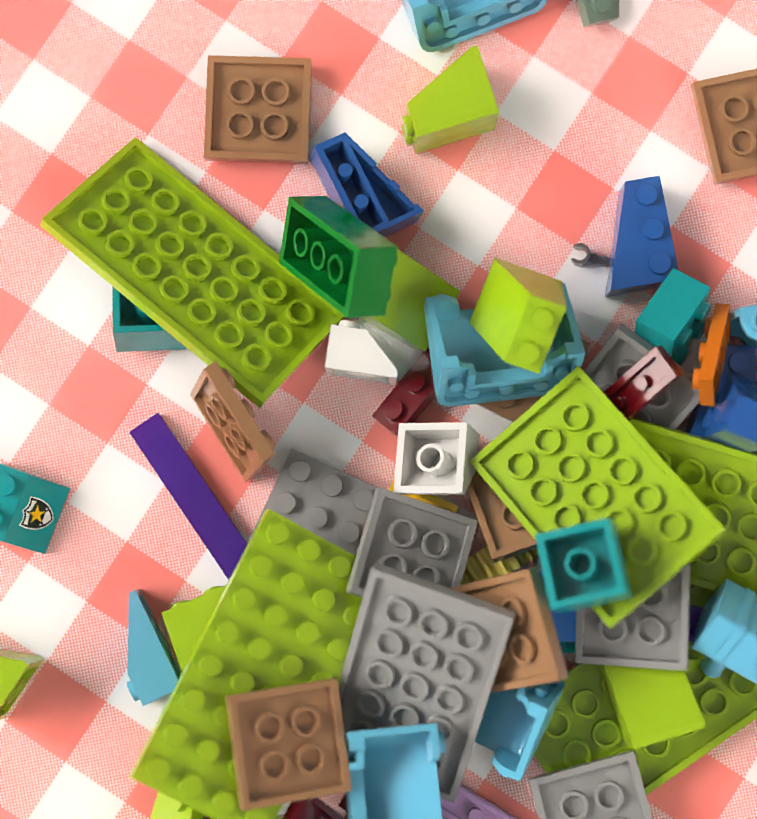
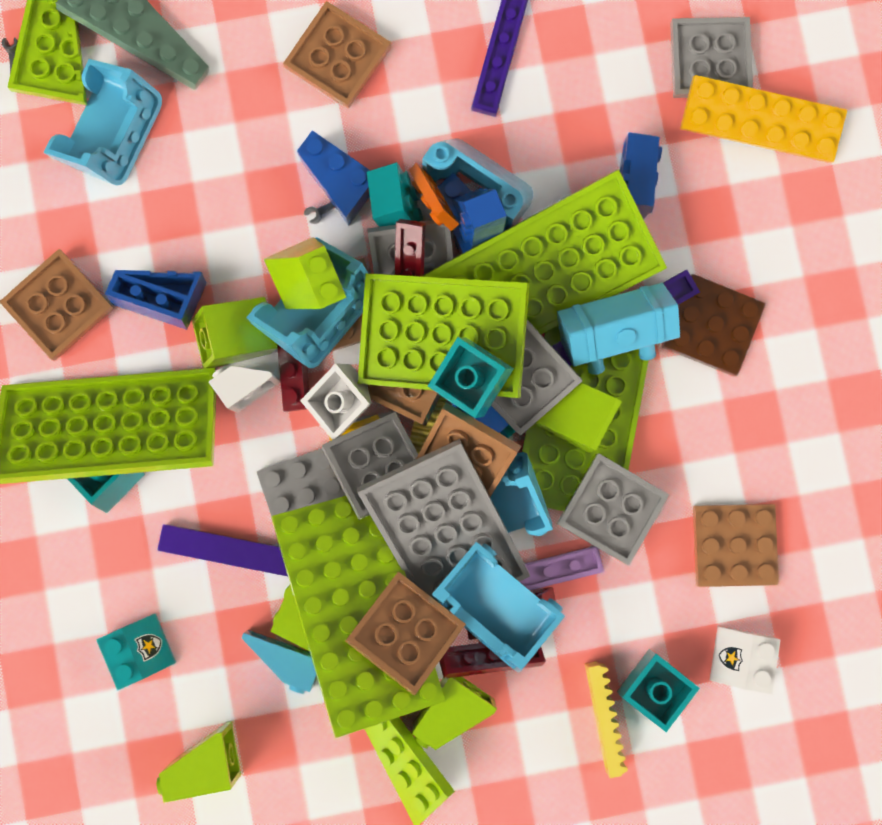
camera: 50 degrees left, 0 degrees up
(232, 421) = (205, 488): medium nougat plate -> none
(338, 256) = (175, 340): green brick -> none
(452, 106) = (161, 200): lime slope -> none

